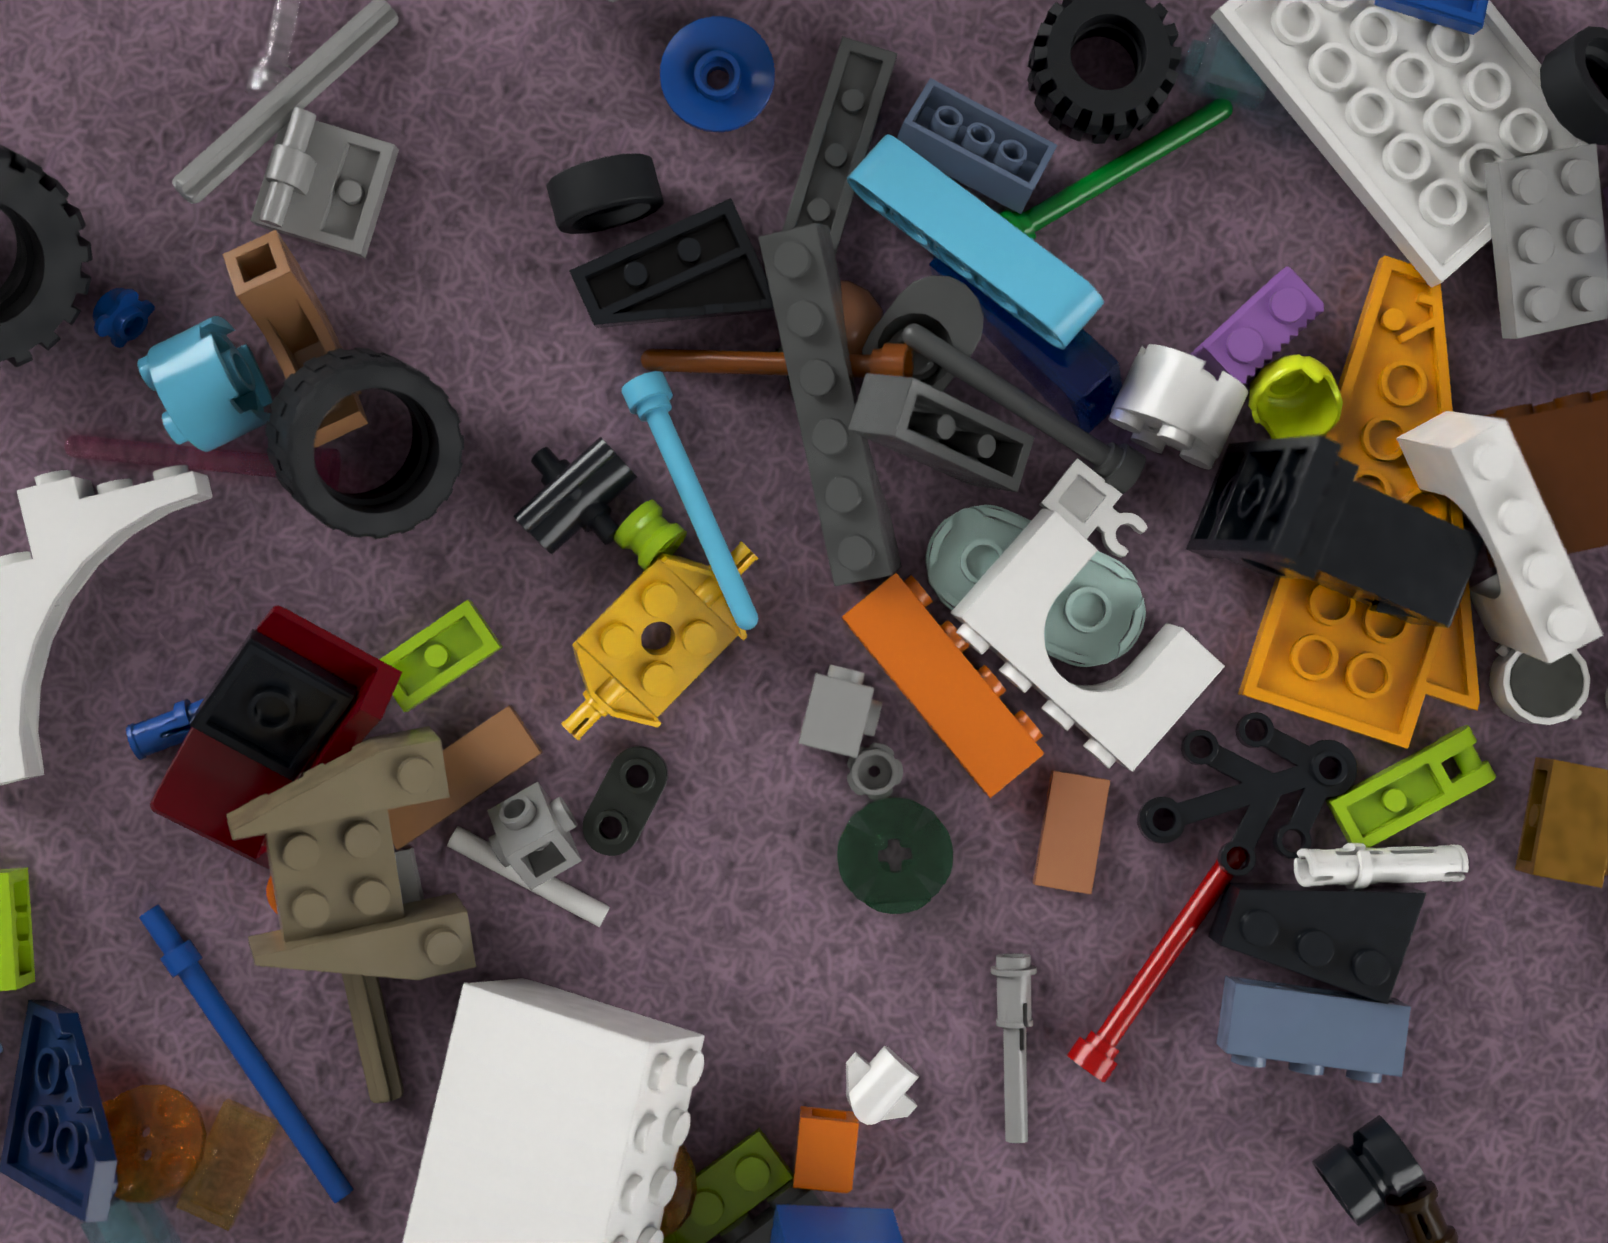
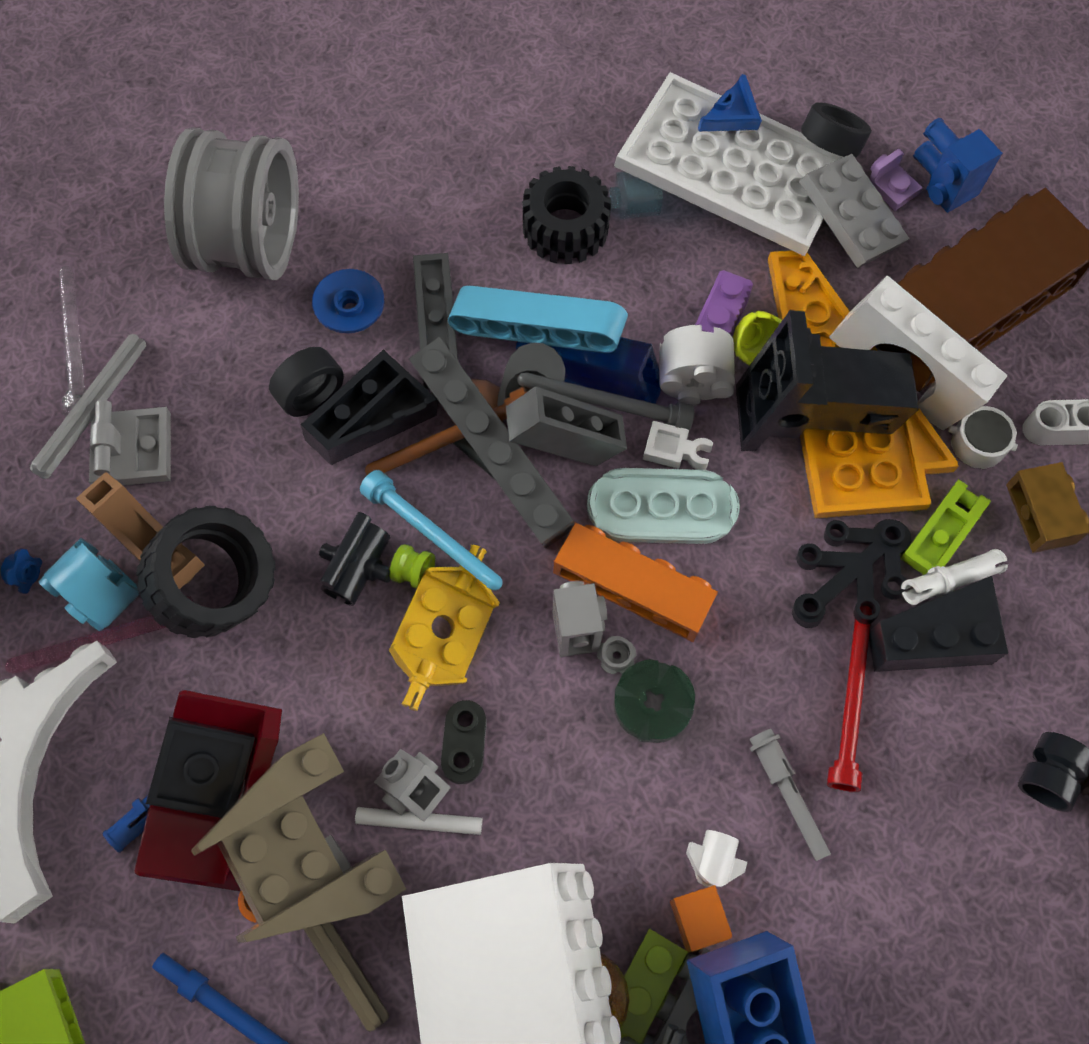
camera: 25 degrees left, 20 degrees down
(441, 654) = (305, 696): lime plate -> none
(471, 768) = (358, 756): medium nougat tile -> none
(976, 145) = (515, 276): sand blue piece -> none
(1009, 617) = (658, 524): white arch -> none
(1071, 832) = (757, 641): nougat tile -> none
(1120, 168) = (610, 256): green piece -> none
(1312, 1029) = (970, 696): sand blue brick -> none

